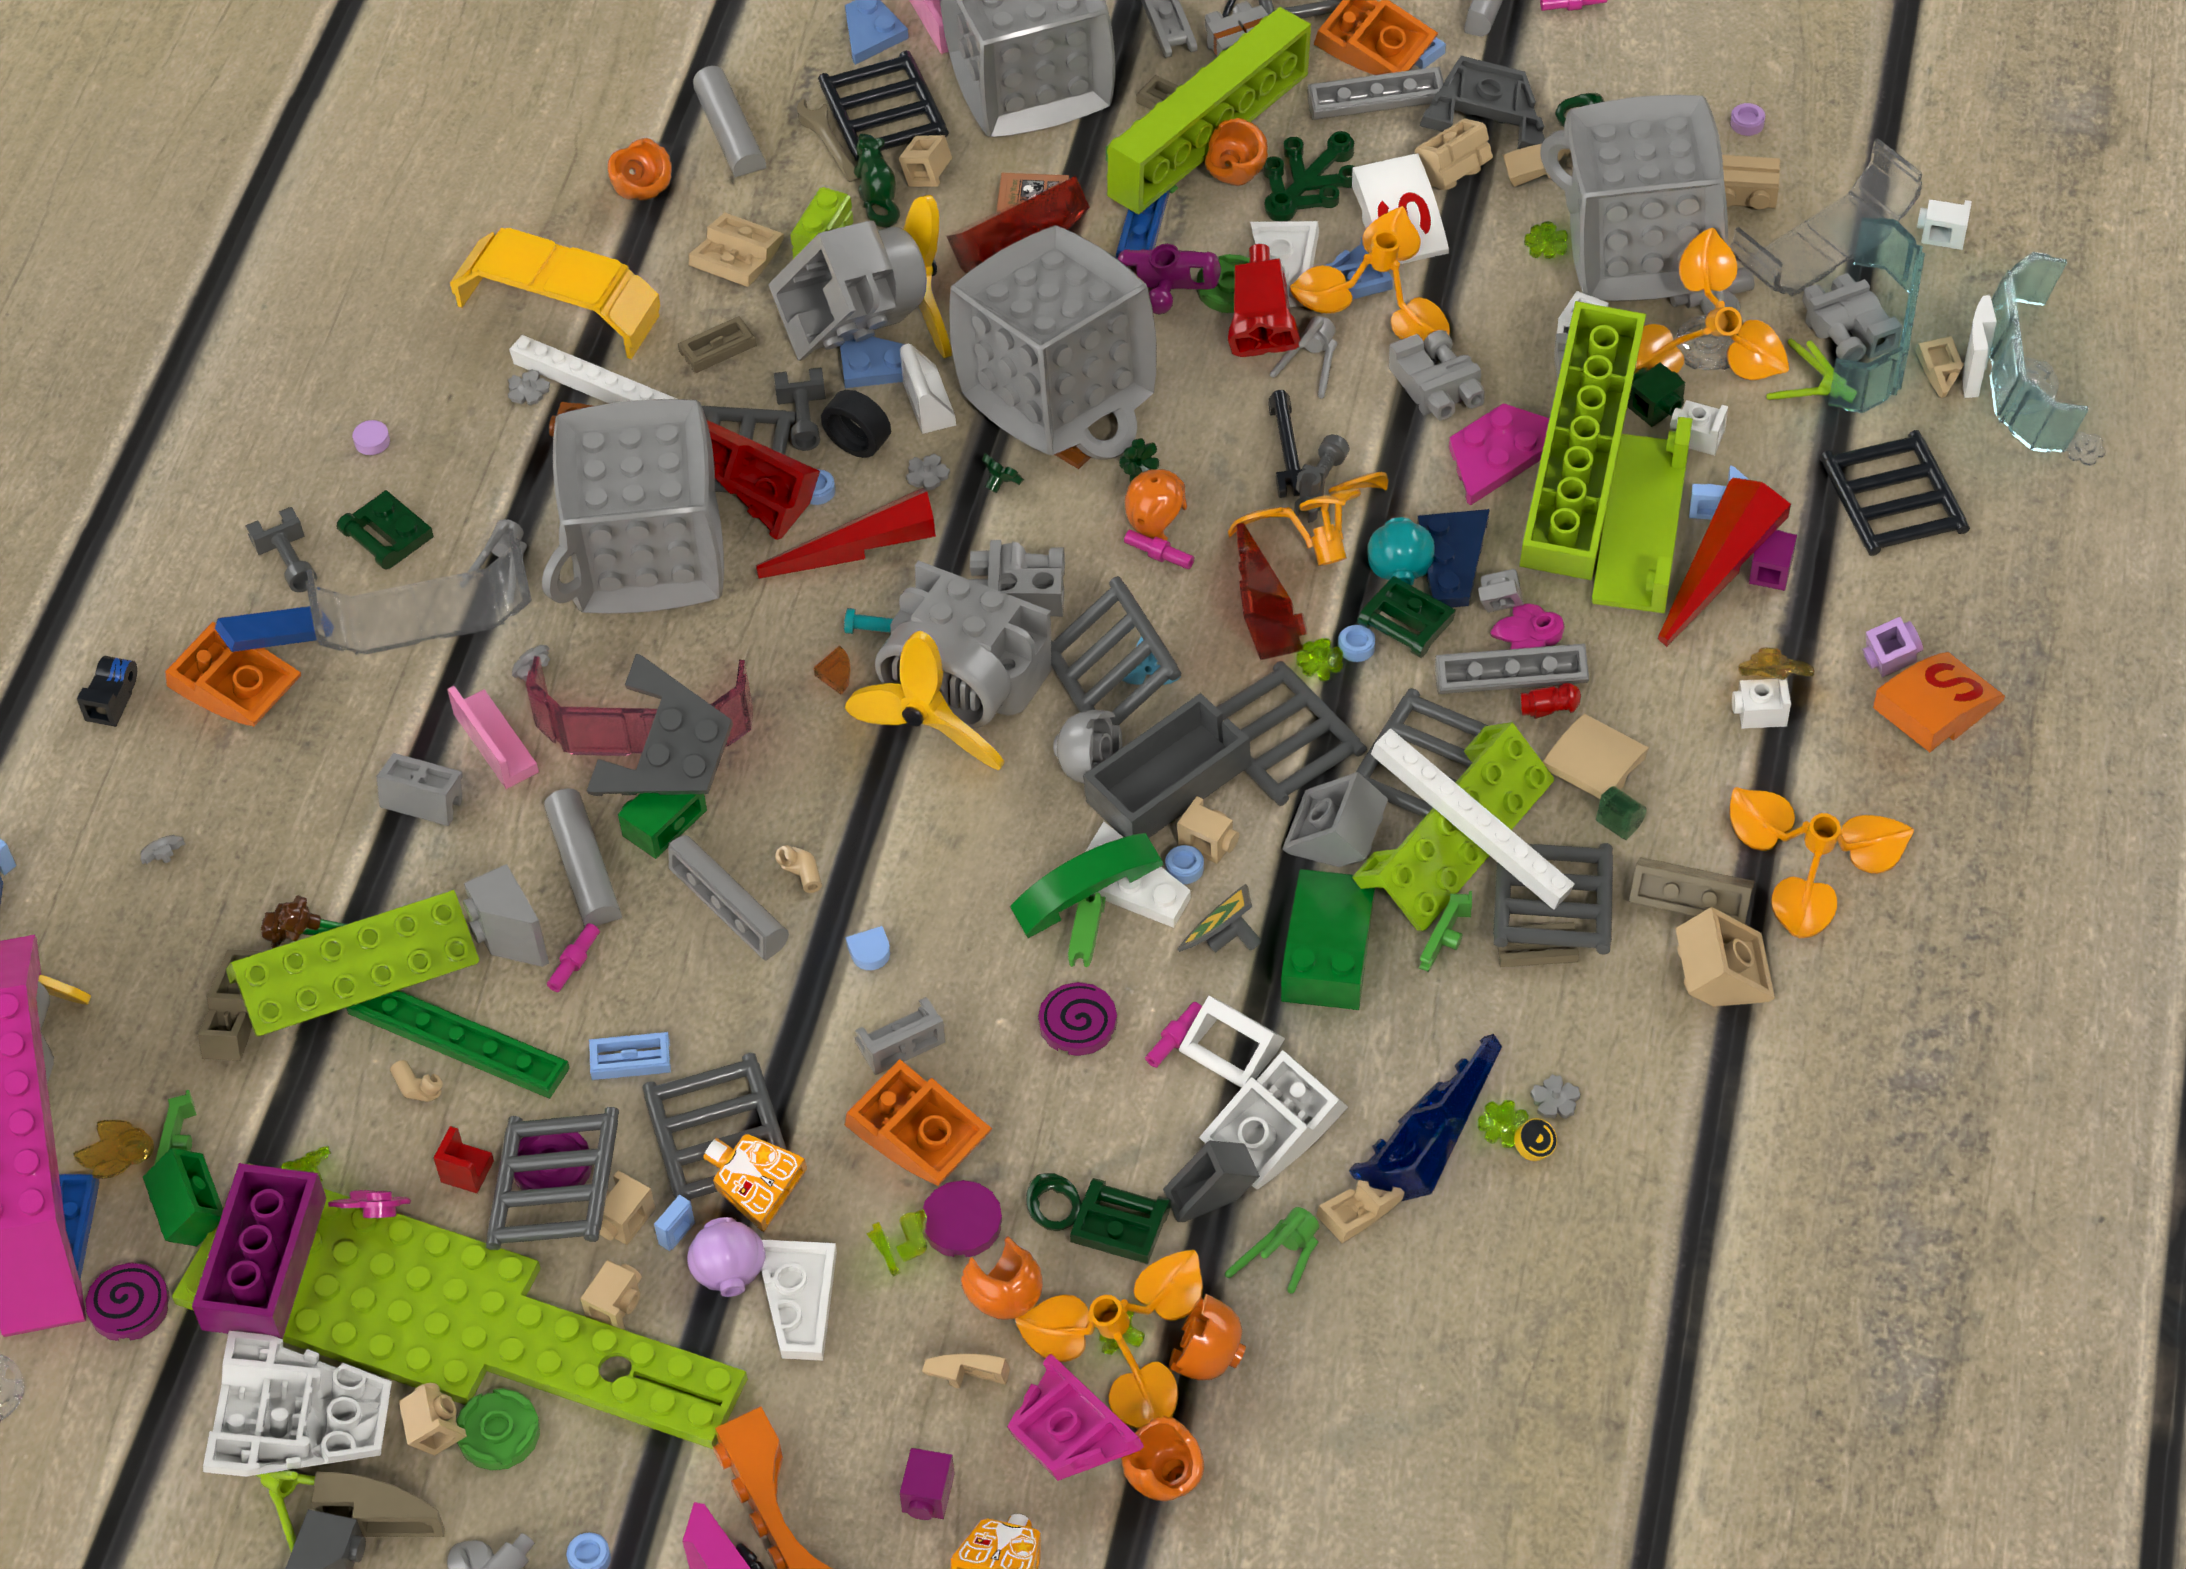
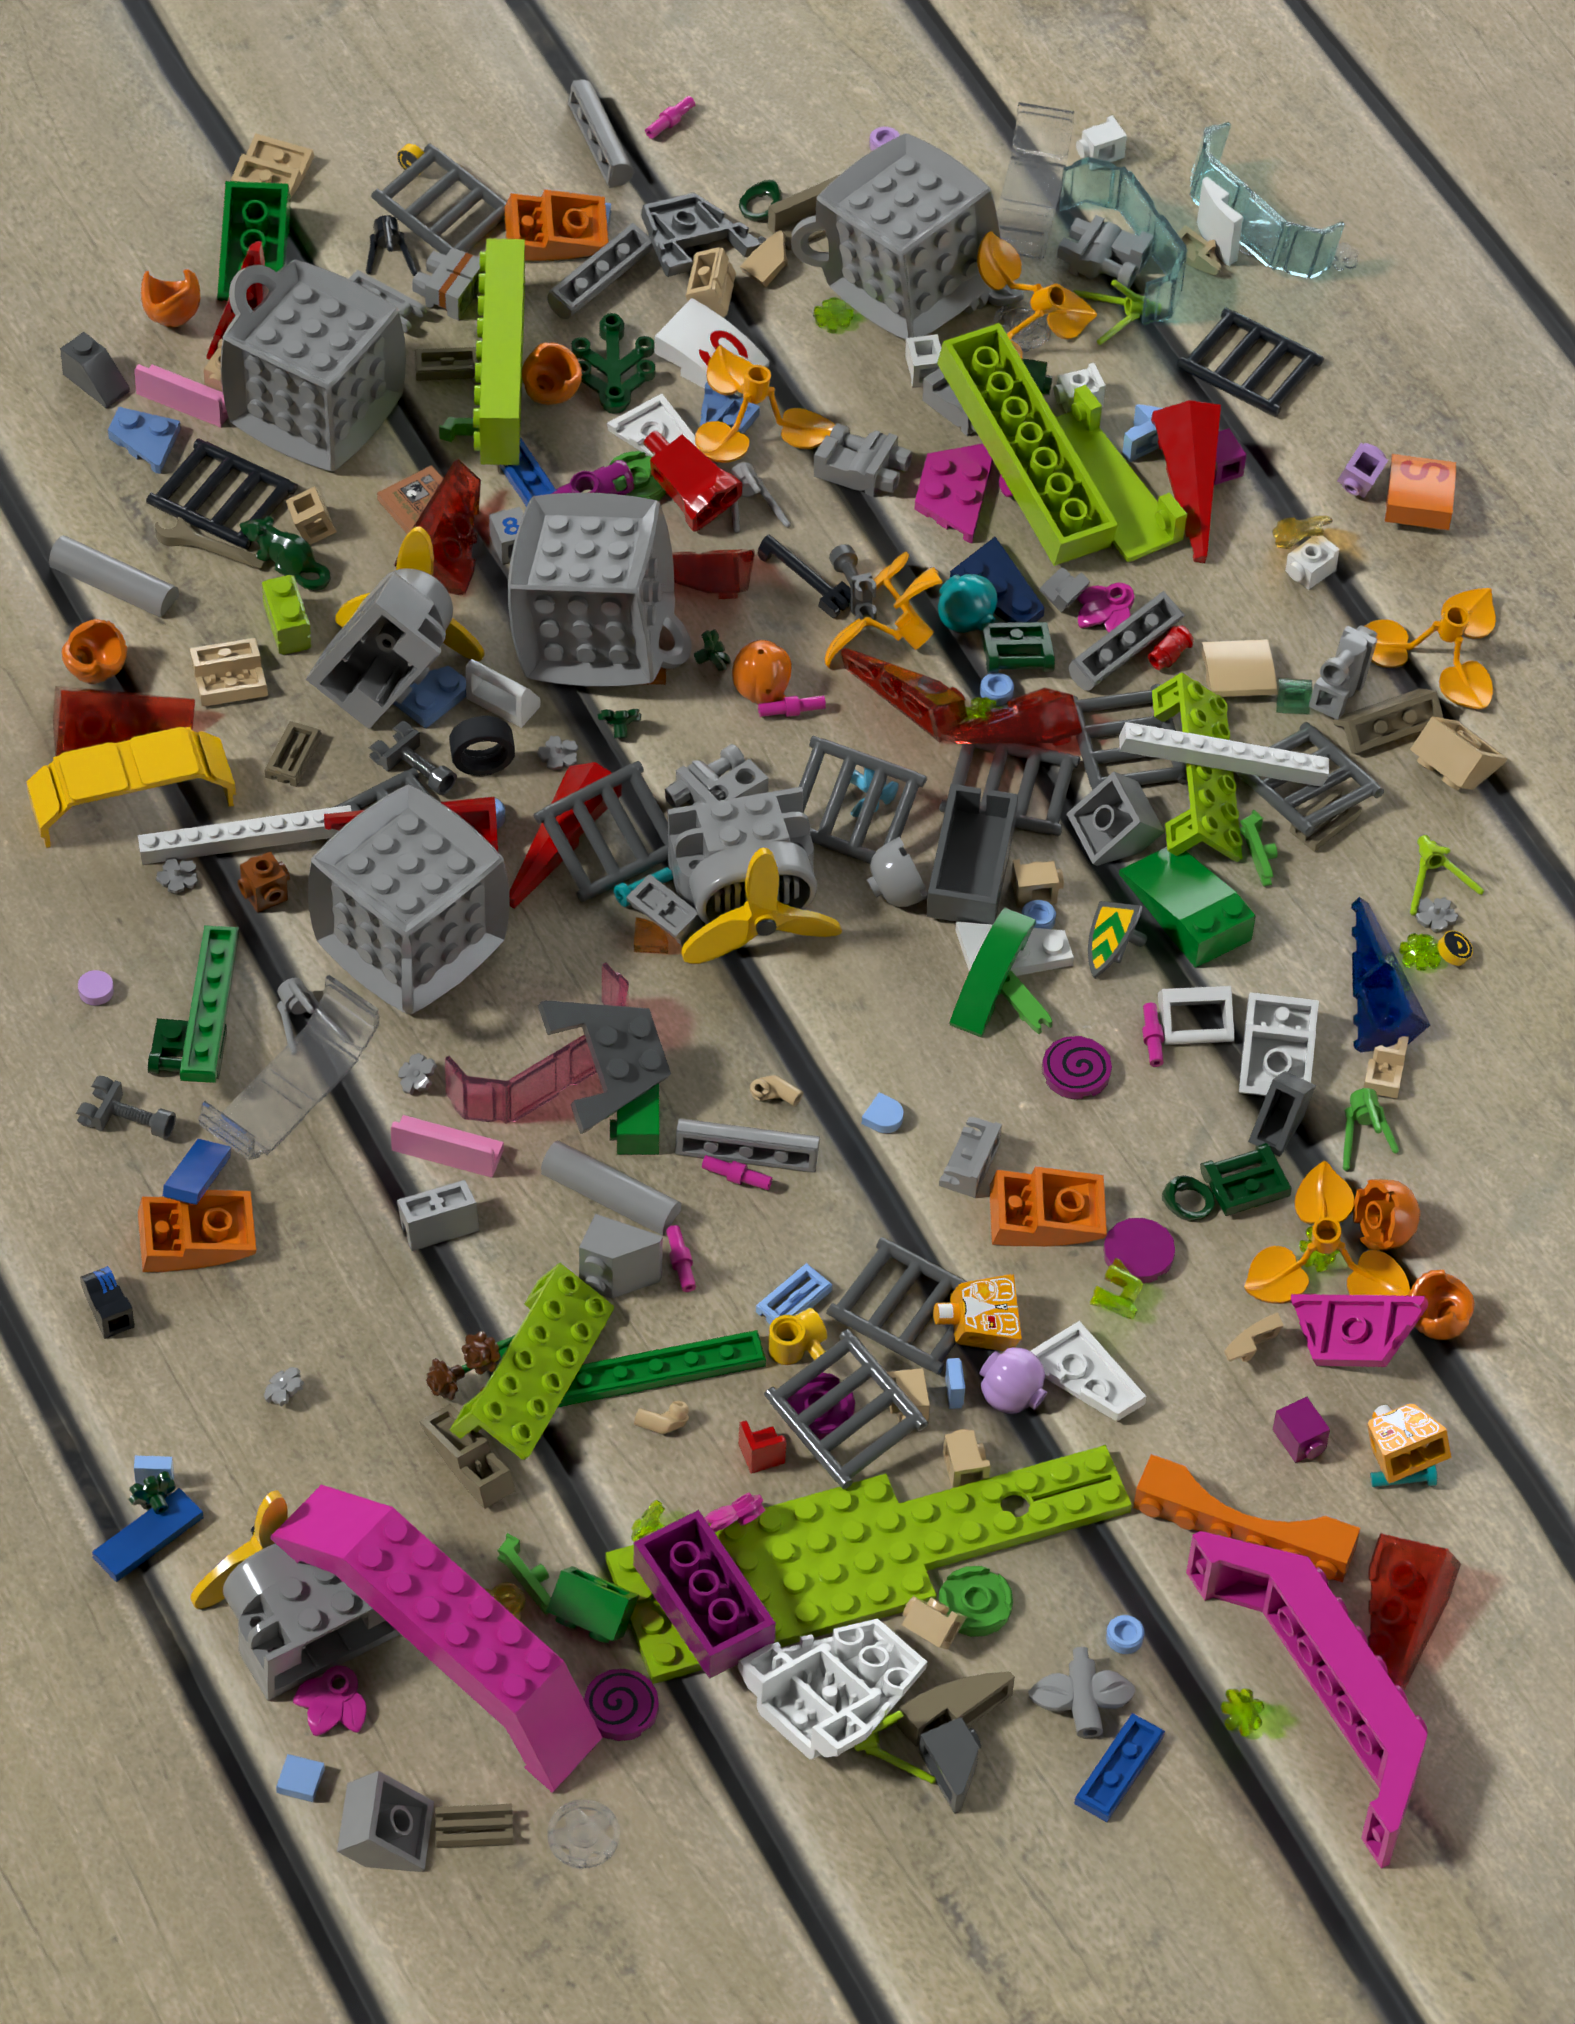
camera: 45 degrees left, 0 degrees up
(429, 502) = (209, 1004): none -> green tile
(597, 224) = (104, 716): none -> clear red wedge
(600, 1089) = (803, 1329): none -> yellow piece
(695, 916) = (737, 1172): none -> dark pink bar
(860, 642) = (665, 908): none -> light grey hinge
(871, 515) = (576, 802): none -> dark grey bar
(1010, 1286) = (1223, 1265): orange piece -> none
(1203, 393) = (715, 571): none -> clear red wedge
(1354, 690) = (1030, 718): none -> clear red wedge
(1600, 1043) = (1433, 857): none -> lime plant
(1681, 817) = (1344, 672): none -> light grey hips

